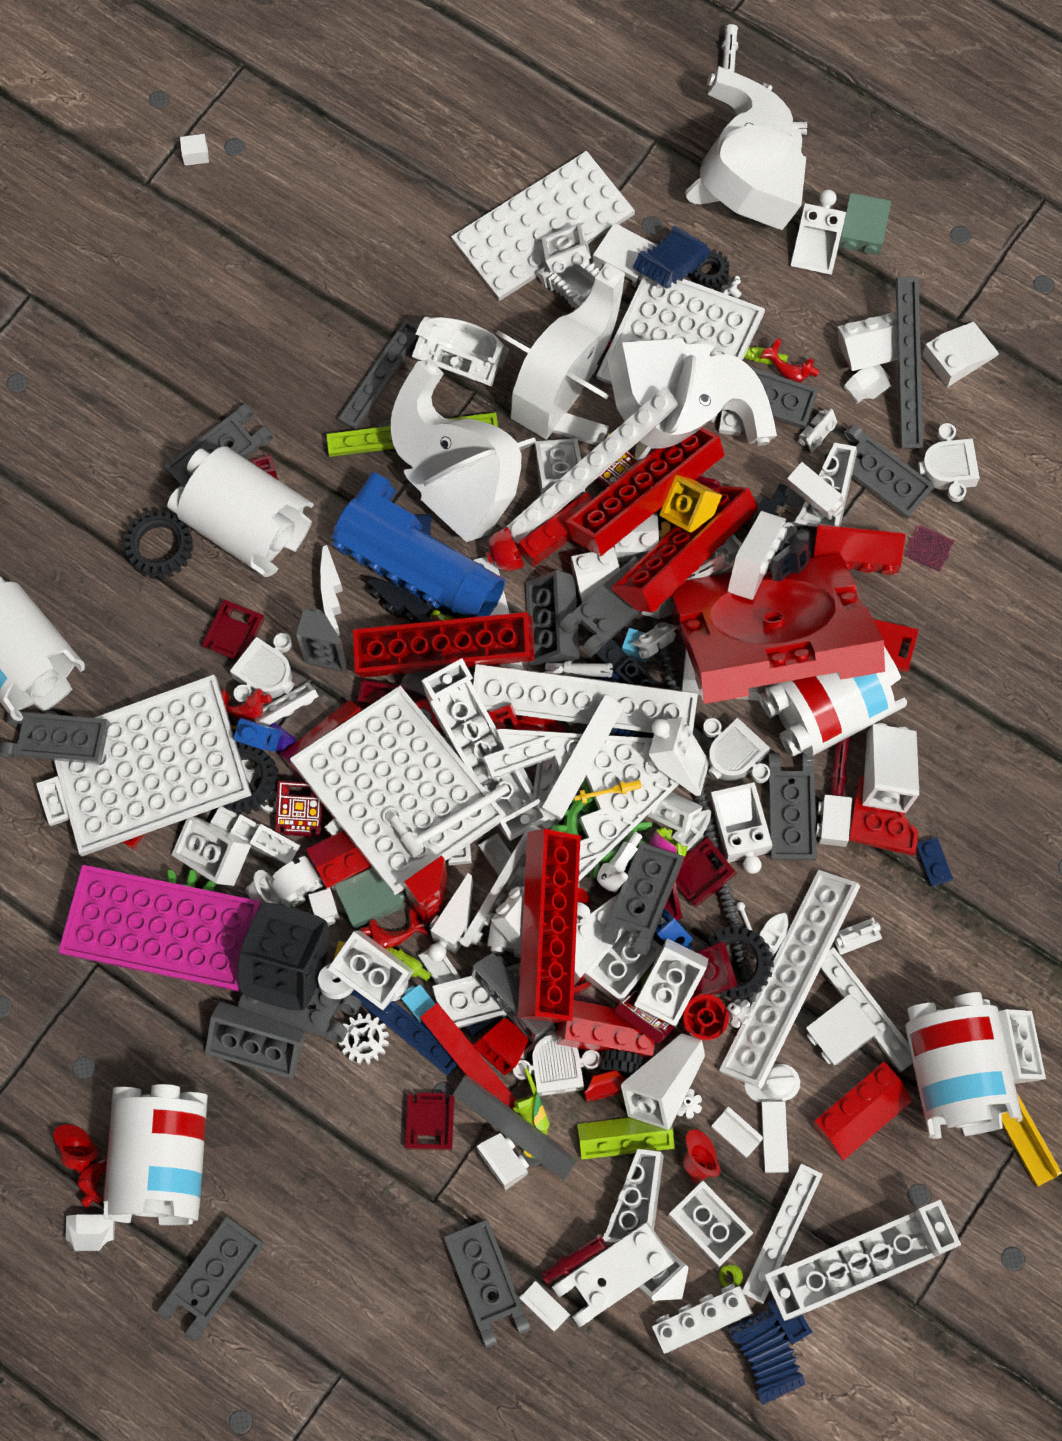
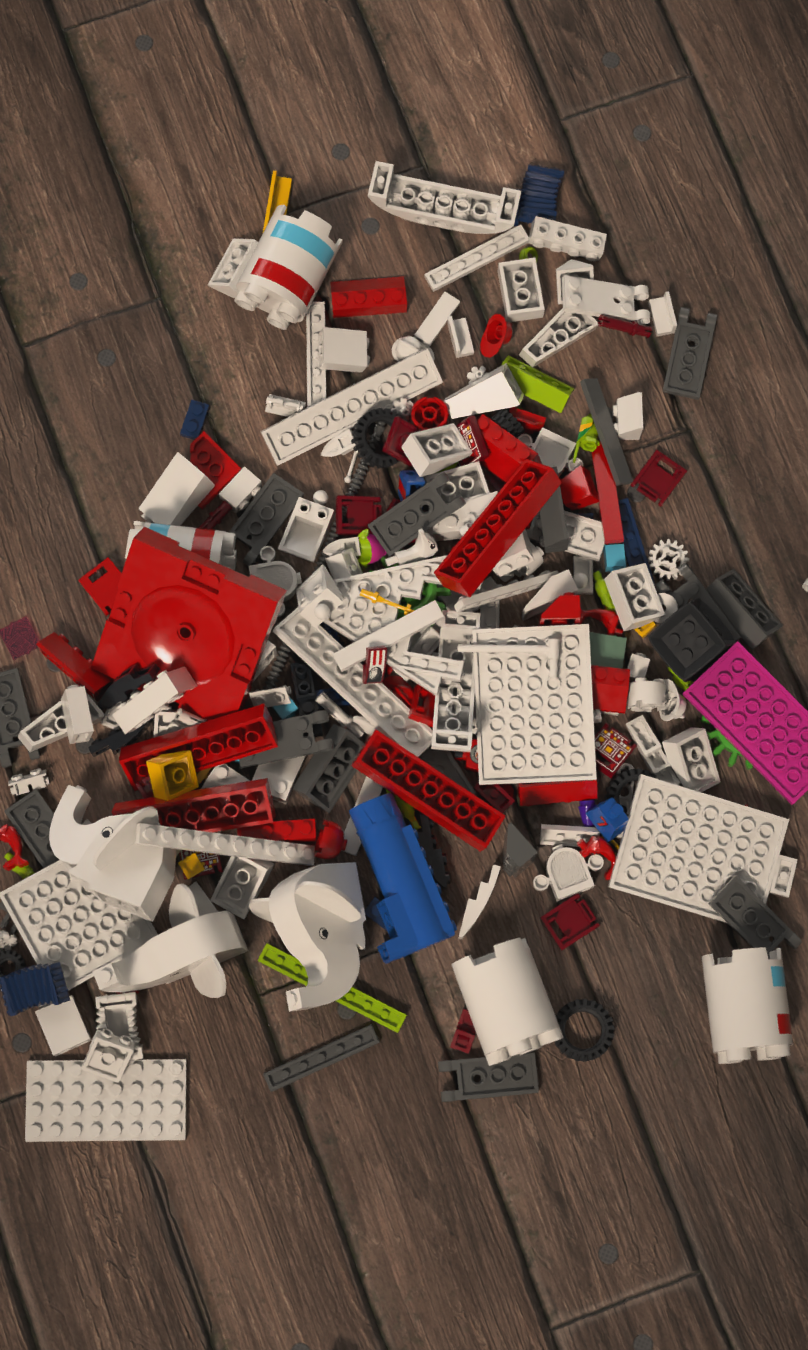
camera: 150 degrees left, 5 degrees up
(460, 348) = (248, 1027): white piece -> none
(577, 723) = (375, 664): none -> slope

